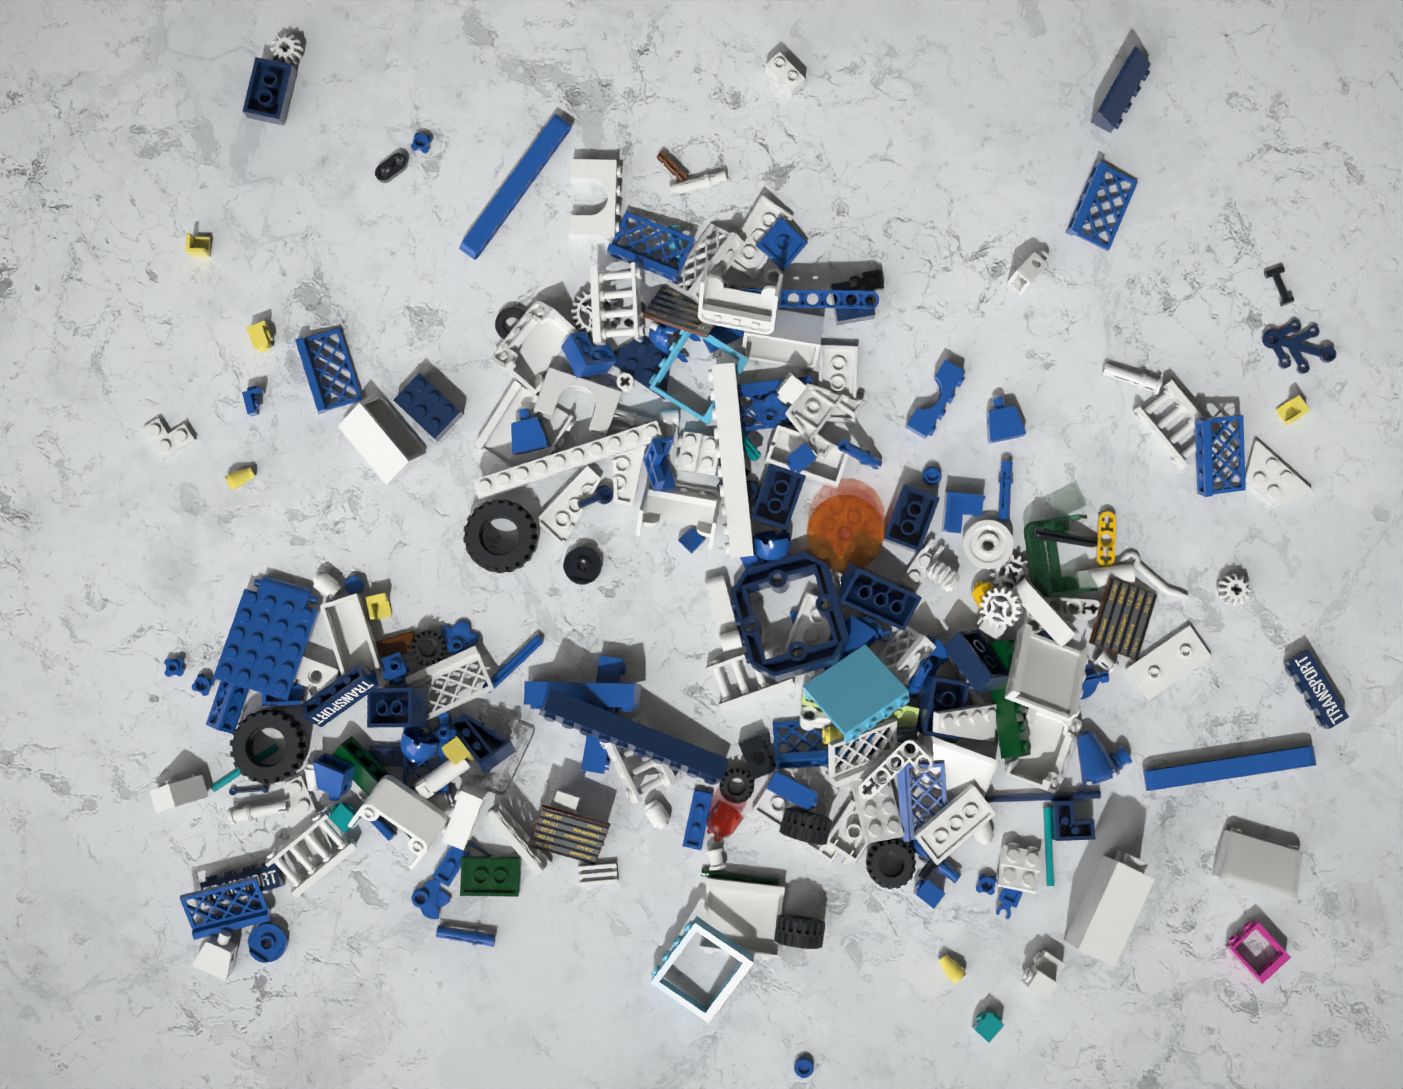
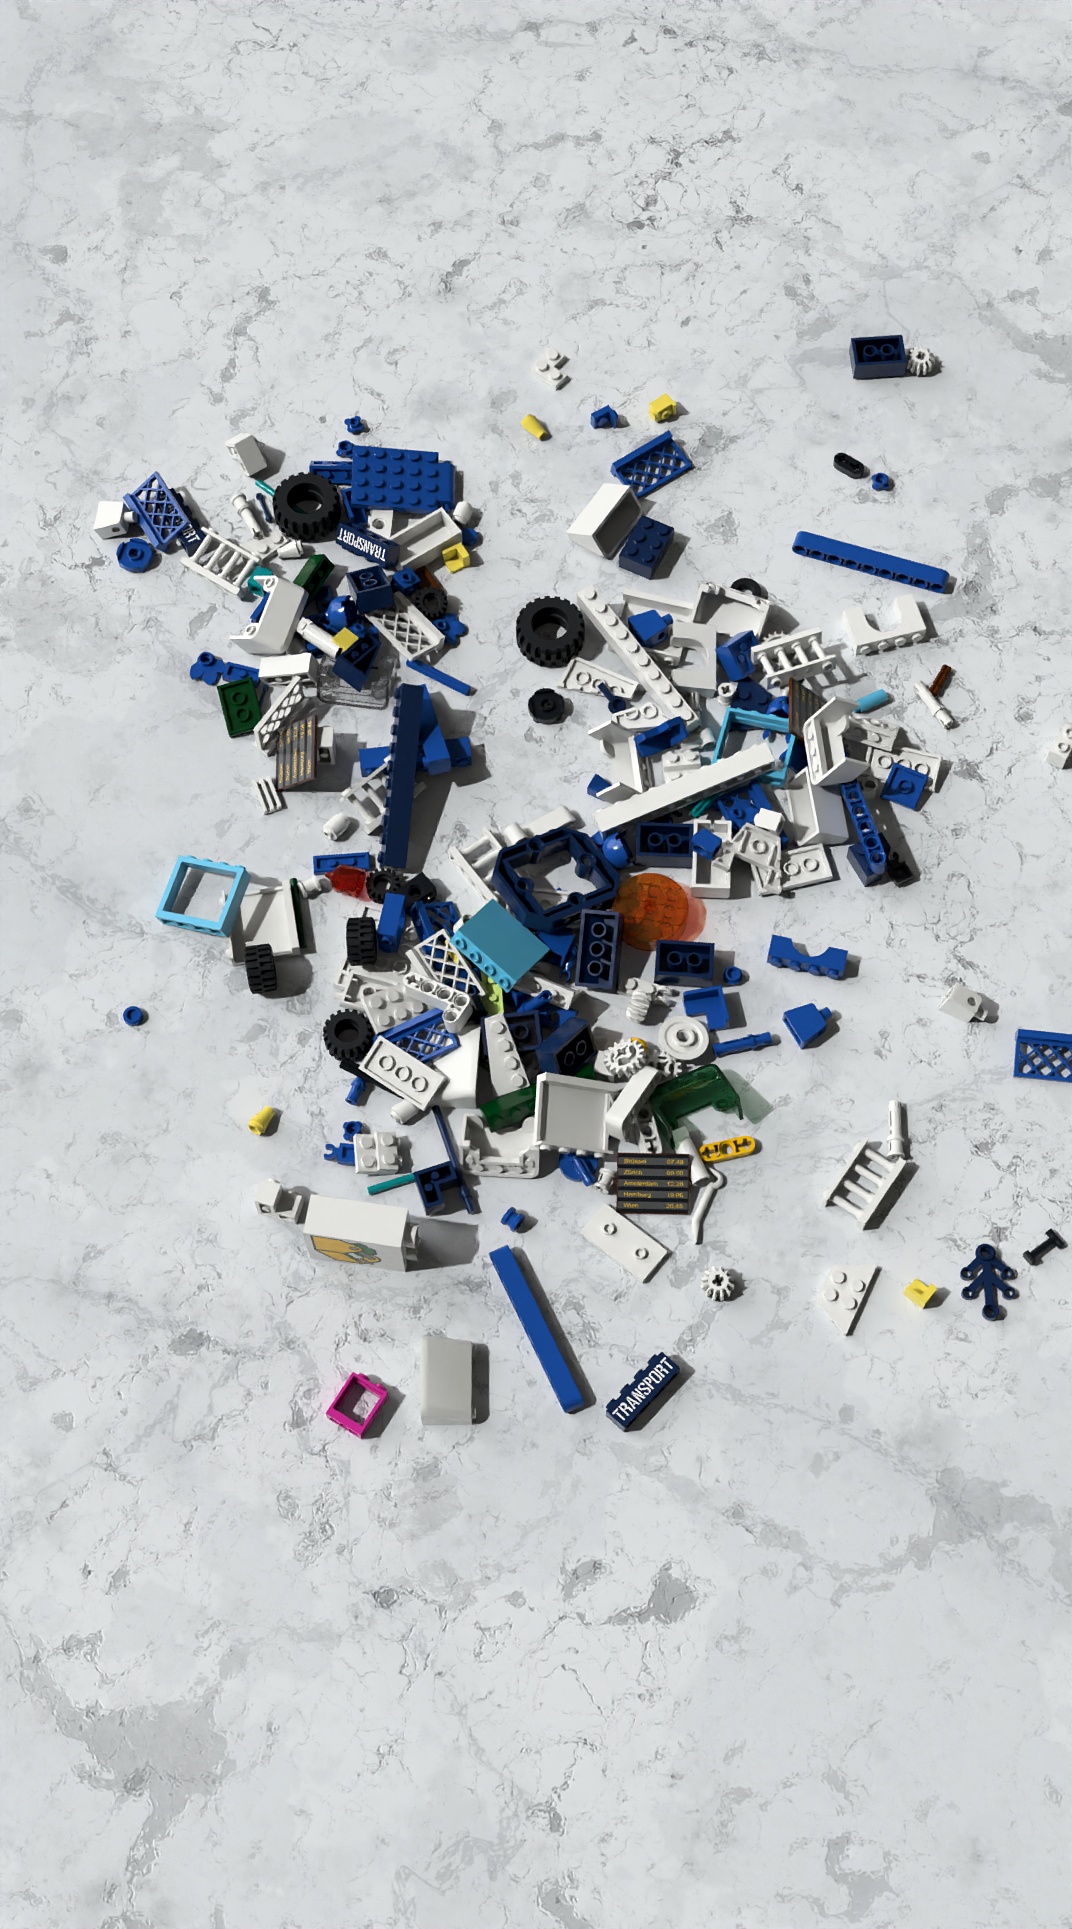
camera: 70 degrees right, 20 degrees down
(198, 246) = (722, 343): light yellow panel -> none
(333, 775) = (295, 560): blue torso -> none
(474, 937) = (182, 710): blue pin -> none
(645, 262) = (843, 673): blue fence -> none
(864, 456) = (729, 899): blue pin -> none
(928, 892) = (329, 1078): blue brick -> none
(988, 1024) = (215, 1166): teal brick -> none
(1065, 537) = (714, 1103): black axle -> none
(1094, 760) = (502, 1193): blue cone -> none
(1204, 453) = (841, 1213): blue fence -> none

